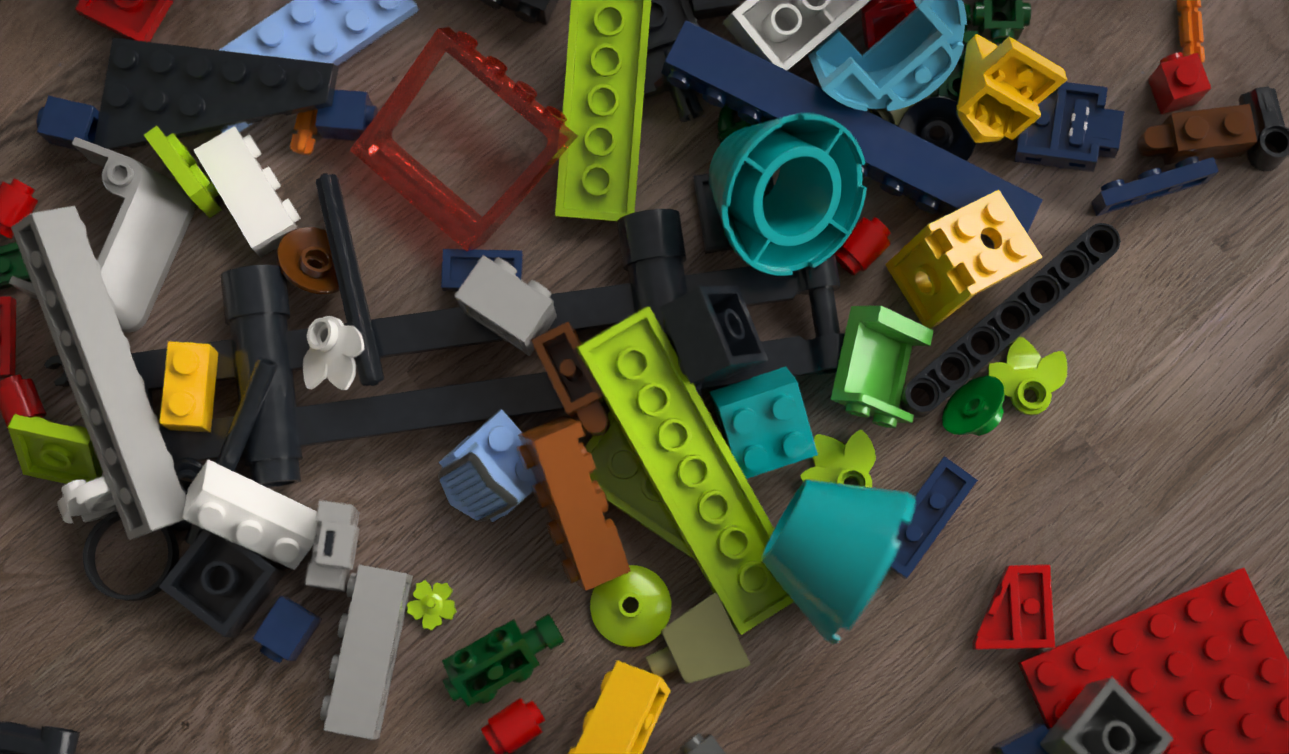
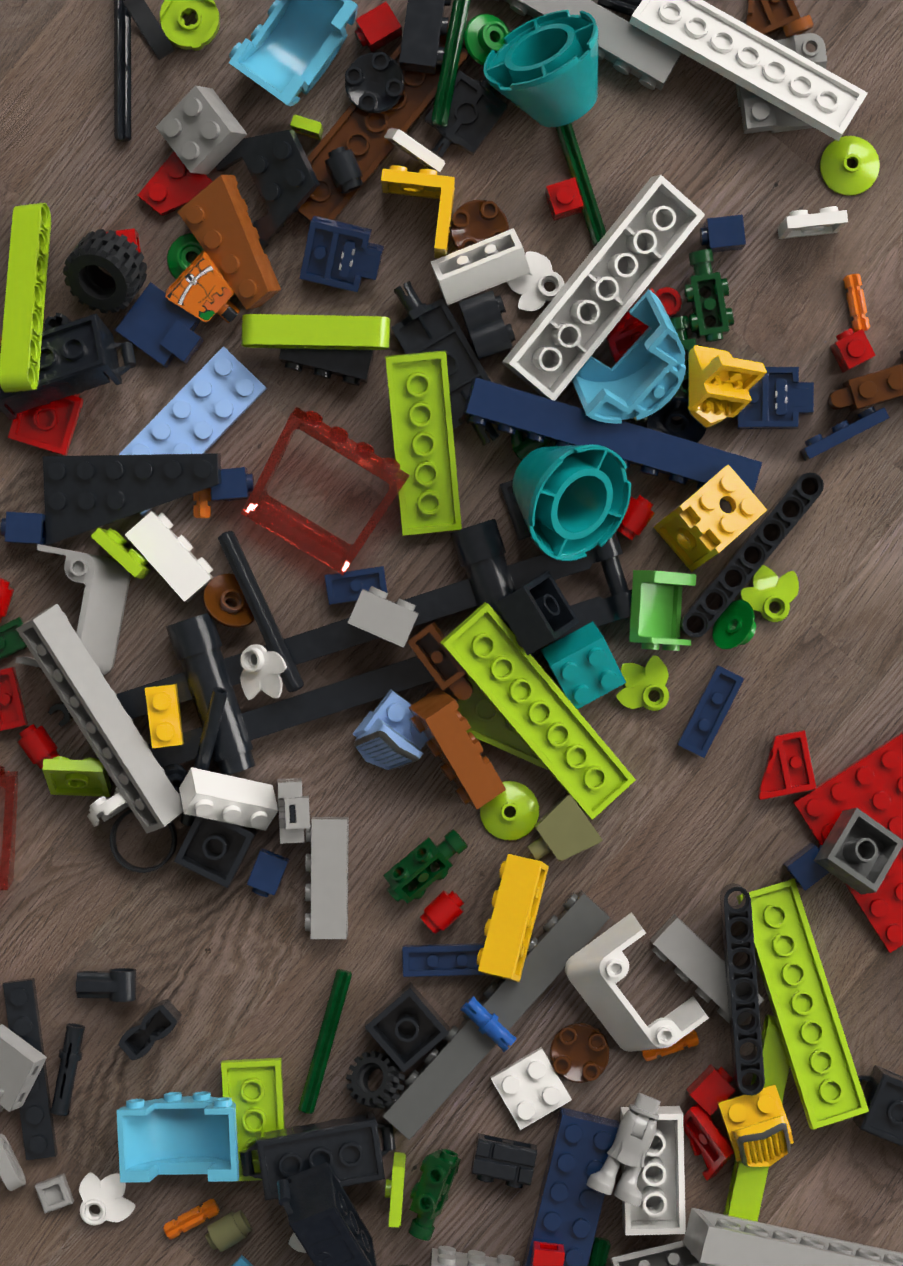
camera: 10 degrees left, 10 degrees up
(432, 604) = (367, 835): lime plant -> none
(836, 549) = (650, 752): teal cone -> none

